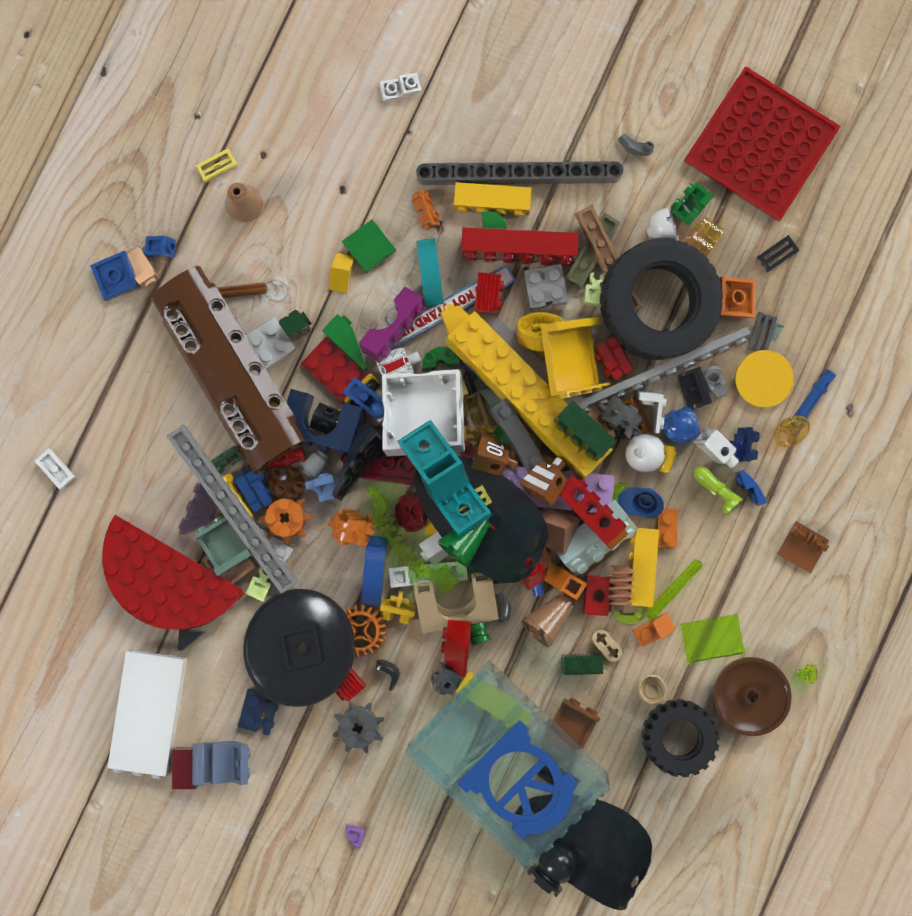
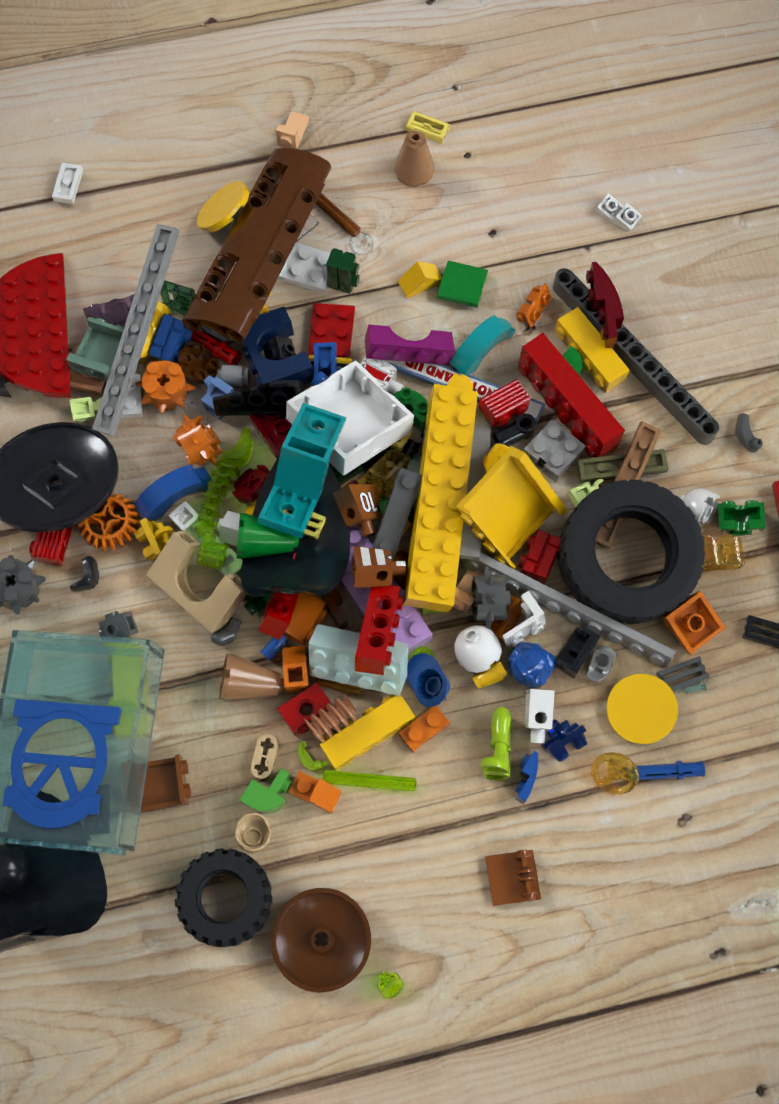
camera: 50 degrees right, 15 degrees down
(115, 275) = (268, 114): blue plate -> none
(160, 246) = (324, 131): blue bracket -> none
(172, 371) = (222, 206): none -> yellow tile
(342, 334) = (366, 311): green slope -> none
(456, 645) = (158, 611): red slope -> none
(465, 159) = (607, 301): none -> dark red slope
(476, 629) = (185, 627): green wheel -> none
(511, 304) = (513, 432): none -> black piece
(560, 529) = (335, 613): nougat slope -> none
(582, 664) = (227, 745): dark green brick -> none
(584, 431) = (447, 560): dark green brick -> none
(636, 665) = (267, 800): none -> bright green brick
(712, 638) = (351, 858): clear neon green piece -> none

